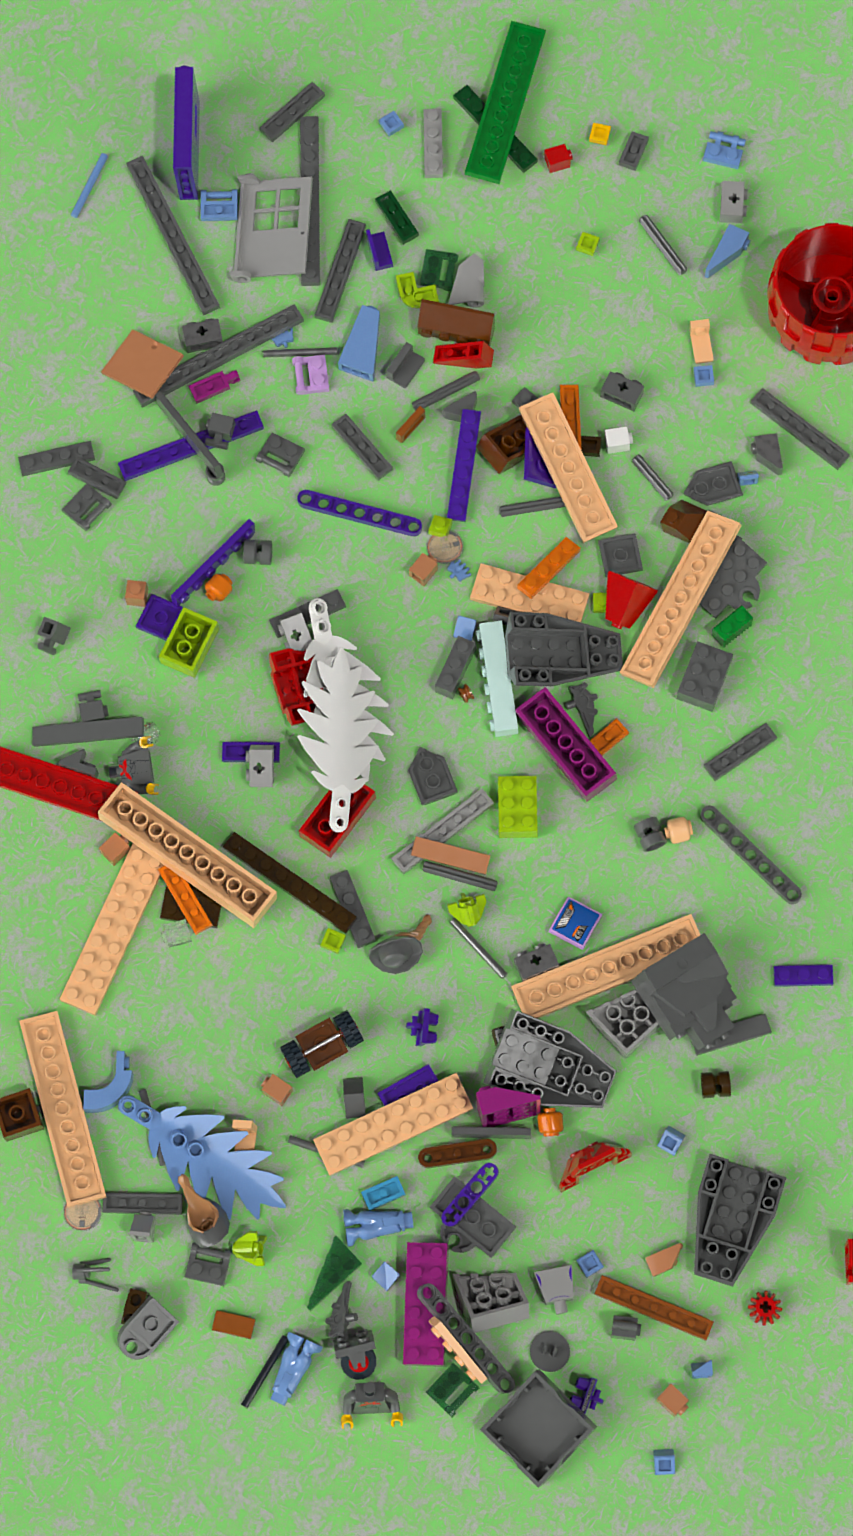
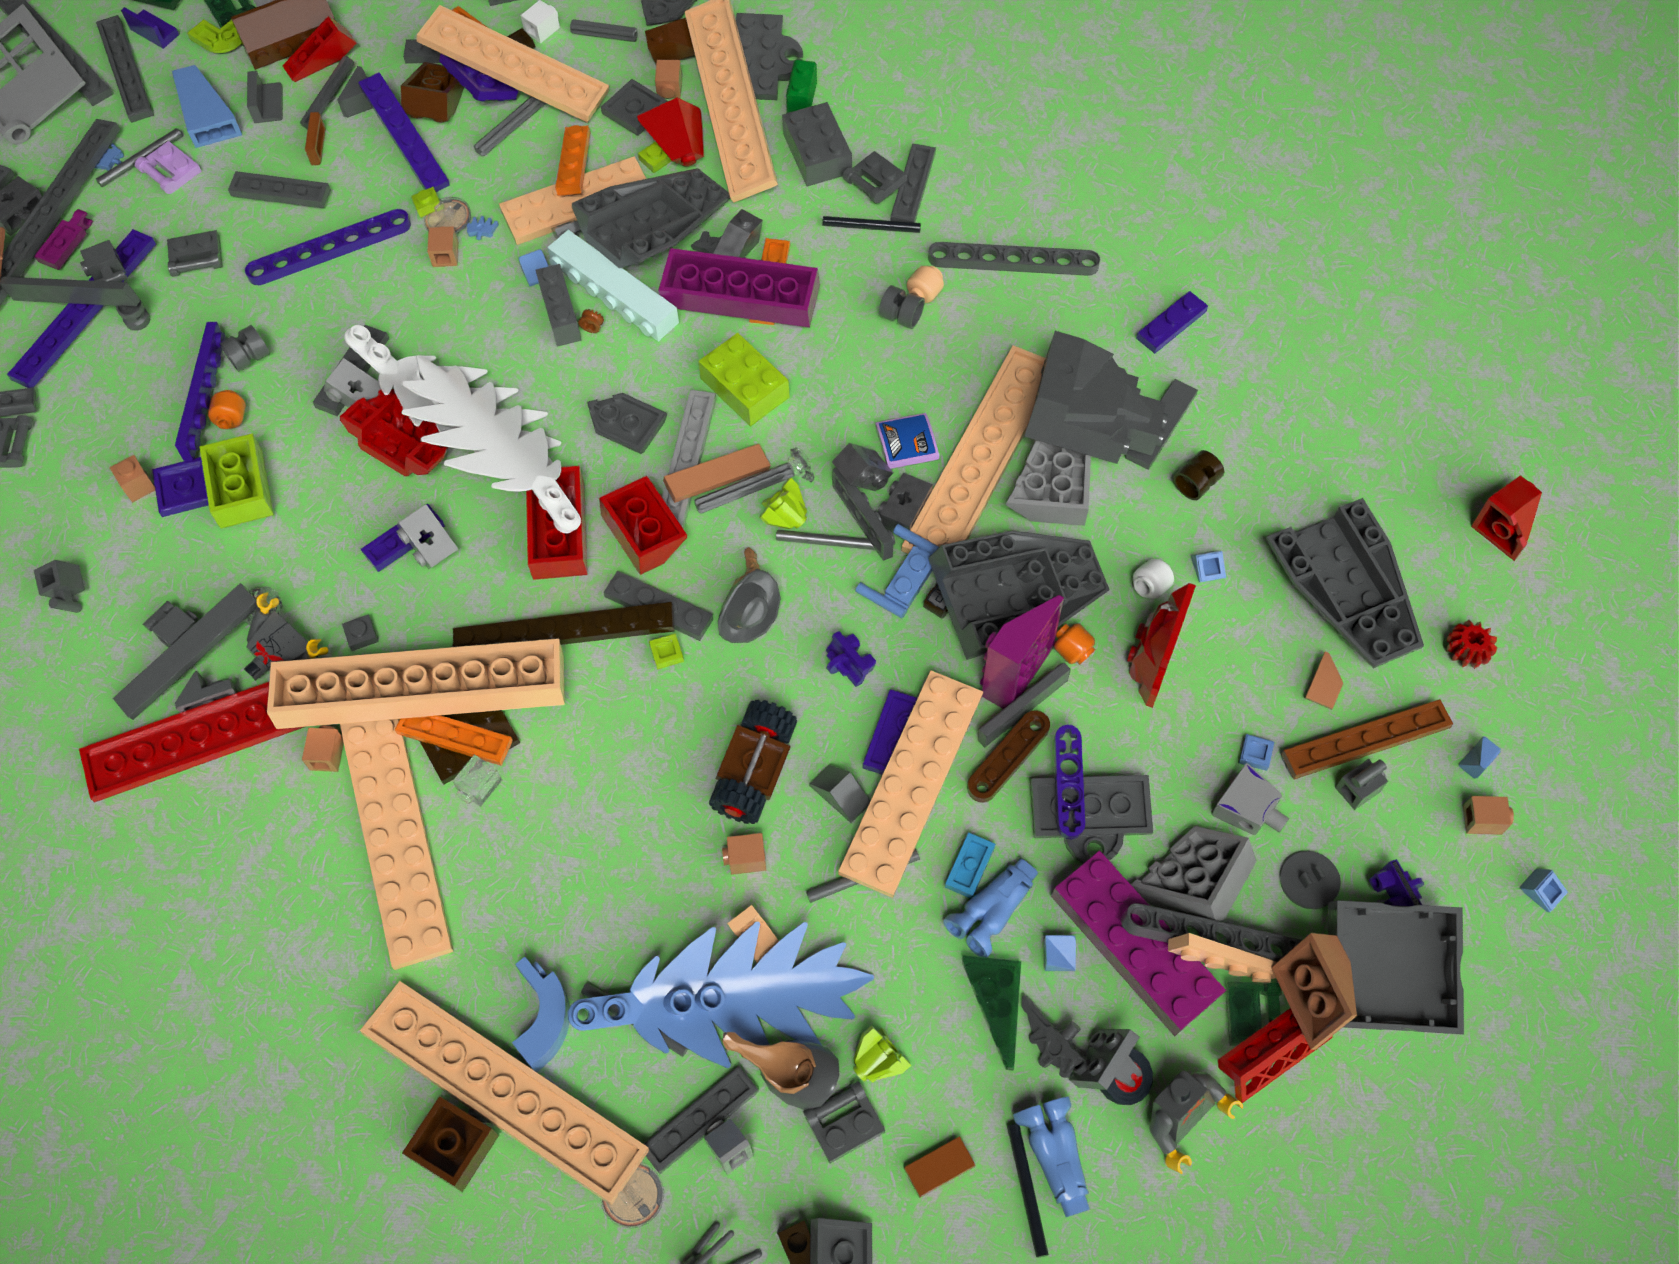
camera: 45 degrees left, 10 degrees down
(185, 792) = (360, 632): none -> dark grey plate
(382, 854) = (642, 524): none -> red slope
(444, 1411) = (1257, 1053): none -> red fence
(484, 1400) = (1318, 986): none -> nougat slope
(500, 1007) = (908, 578): none -> medium blue plate
(501, 888) = (800, 464): none -> clear animal
(506, 956) = (866, 518): none -> dark grey plate
(529, 922) = (862, 467): none -> flat silver brick
(595, 708) = (740, 235): none -> flat silver slope
(629, 1122) = (1153, 578): none -> white head
(658, 551) = (668, 78): none -> nougat brick
(688, 759) = (871, 224): none -> black bar
(725, 729) = (878, 171): none -> dark grey plate

